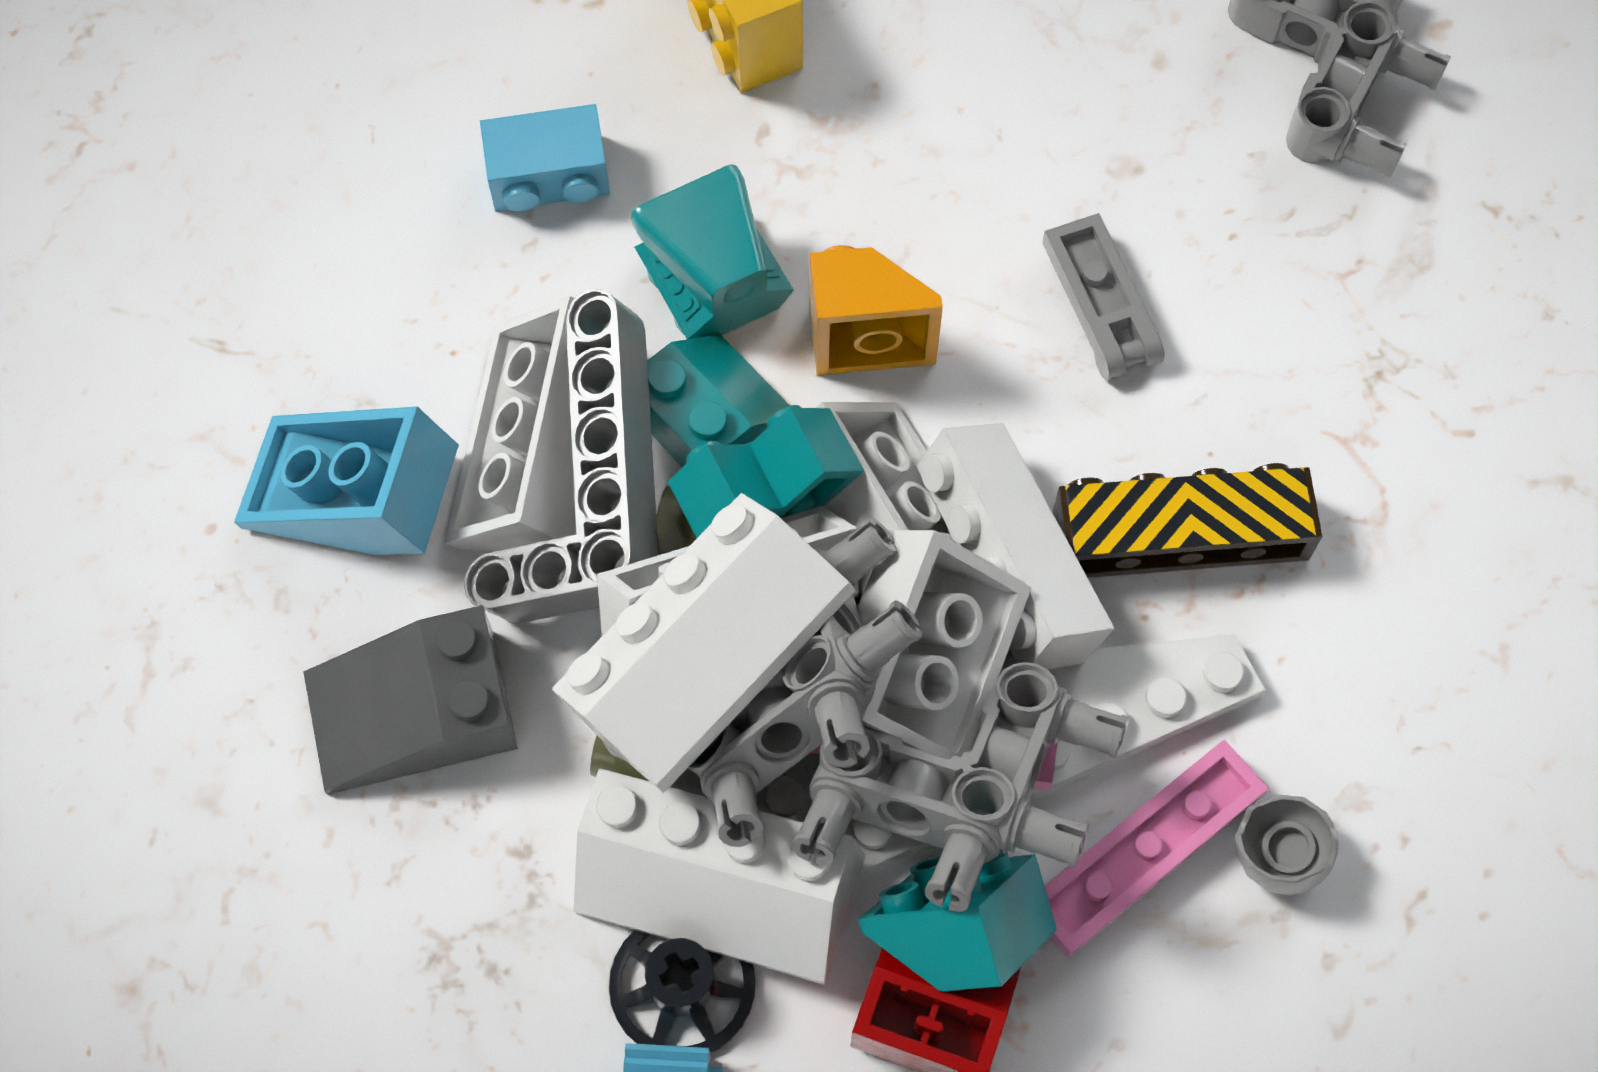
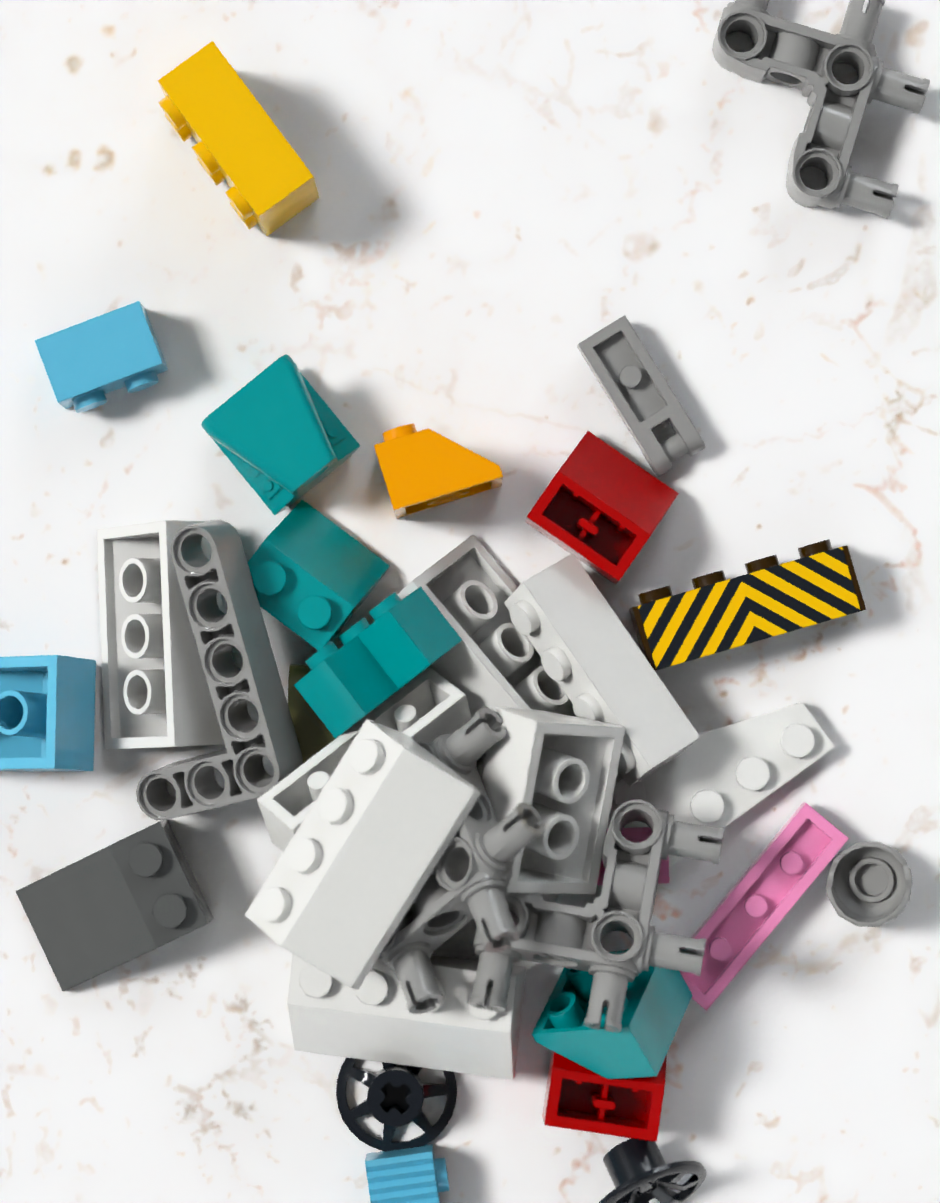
camera: 15 degrees left, 20 degrees up
(1039, 392) = (601, 507): none -> red slope

